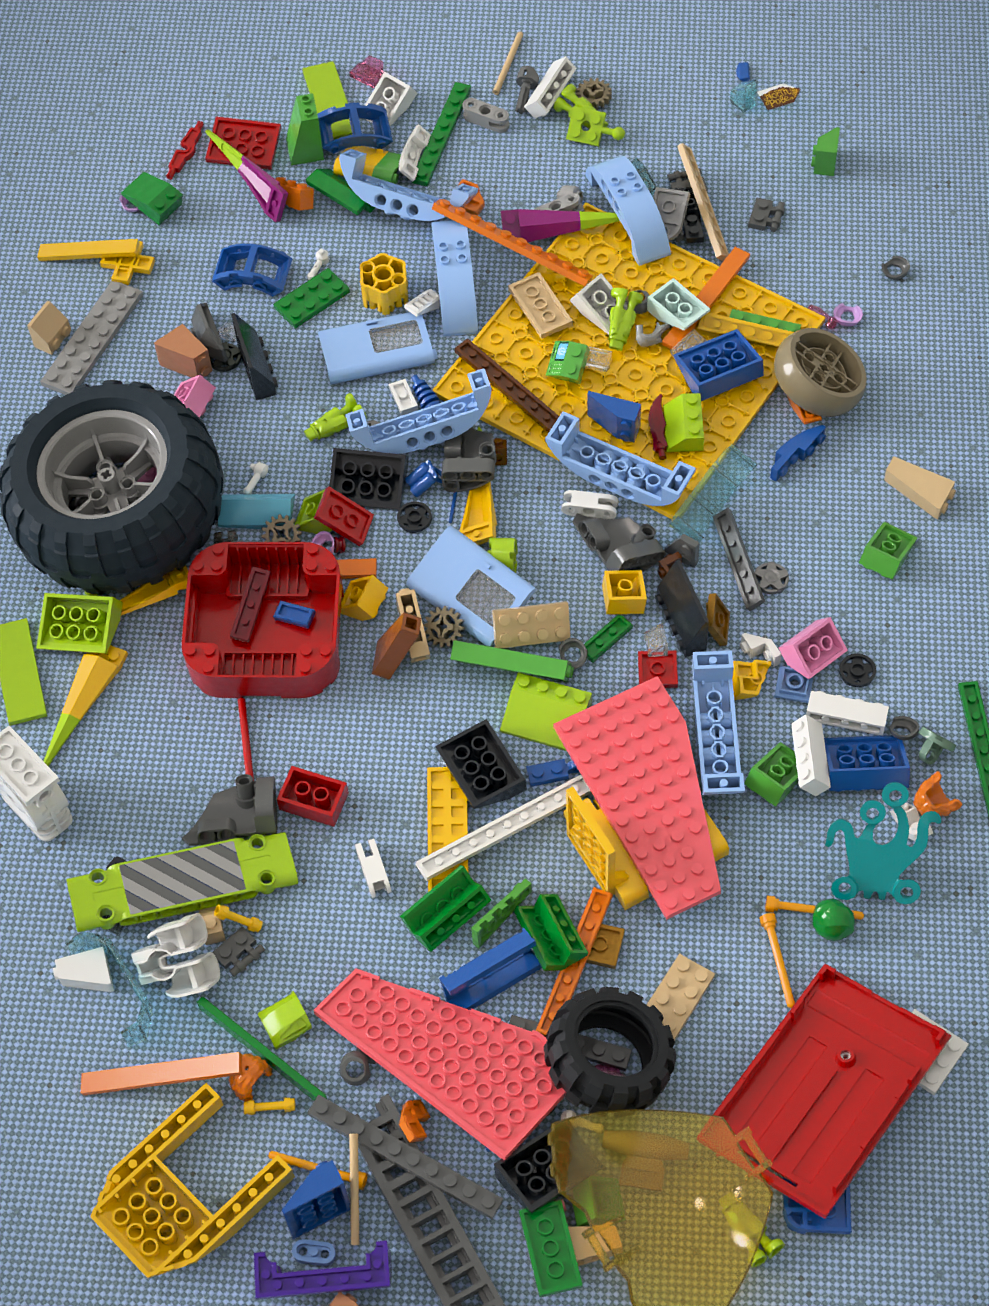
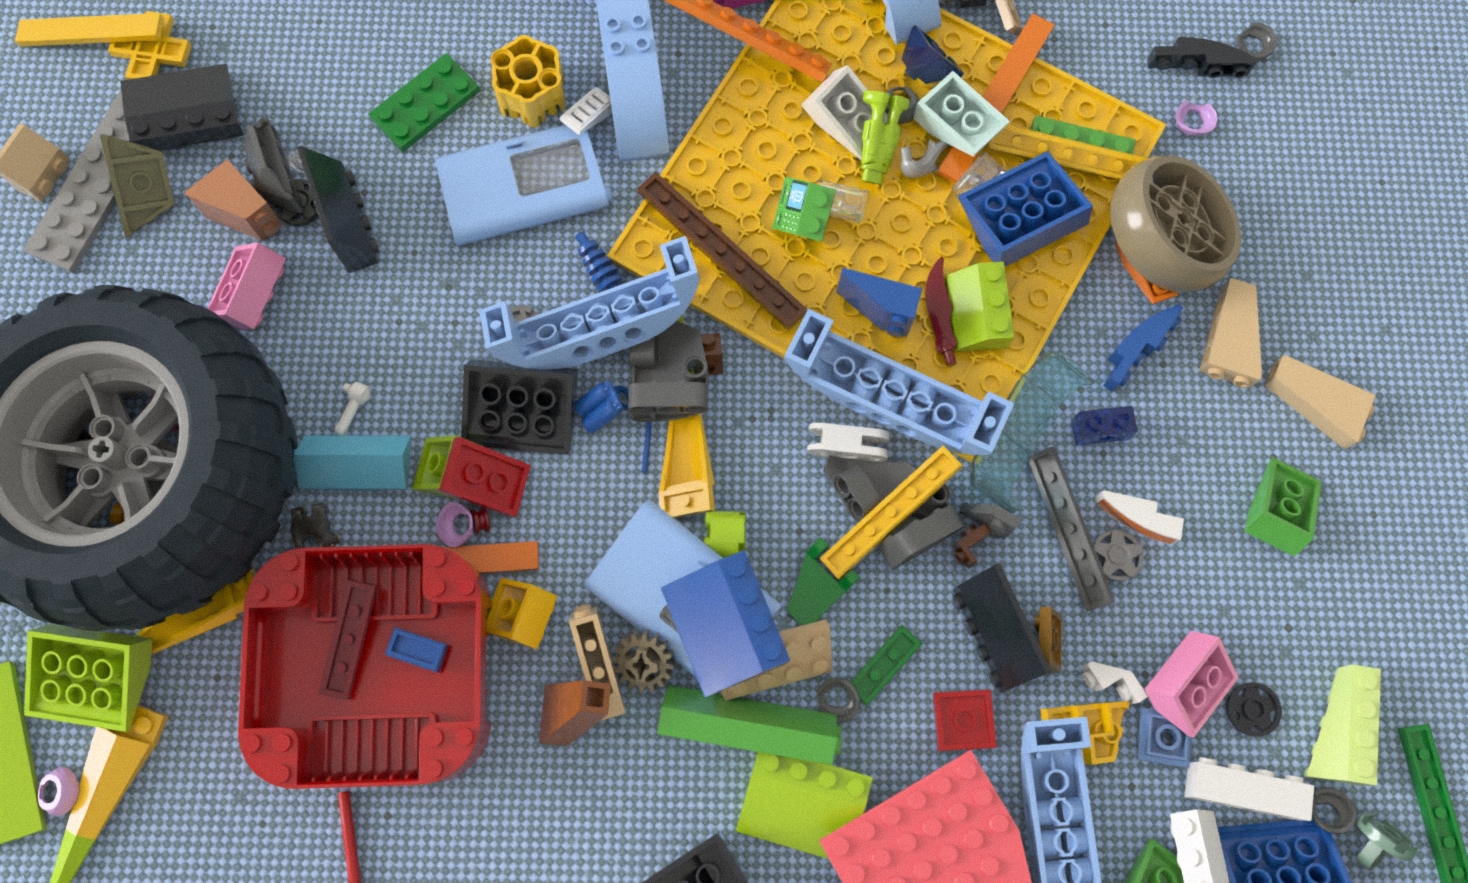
camera: 10 degrees left, 15 degrees up
(62, 694) = (66, 791): none -> lavender piece
(119, 339) = (137, 181): none -> olive wing
(149, 298) = (181, 108): none -> black slope
(228, 278) = (296, 47): blue window -> none
(286, 527) = (383, 501): dark tan gear -> none
(322, 258) = (437, 38): white piece -> none
(333, 420) = (463, 308): lime piece -> none
(403, 397) = (565, 265): white plate -> none
(414, 517) = (590, 466): black wheel -> none
(498, 591) = (725, 624): none -> slope
(540, 305) = (758, 113): tan plate -> none
(563, 589) = (815, 588): none -> green flag
(619, 537) = (891, 512): none -> yellow tile
(624, 592) = (909, 594): yellow slope -> none
(656, 641) = (960, 676): clear slope -> none
(657, 272) = (926, 59): none -> clear blue slope
(766, 498) = (1104, 425): none -> clear blue brick
(787, 553) = (1141, 516): none -> white slope
(831, 323) = (1174, 131): clear pink piece -> none
(859, 275) = (1206, 55): none -> black slope
(861, 449) = (1234, 337): none -> tan slope
(918, 687) = (1349, 729): none -> yellowish green wedge

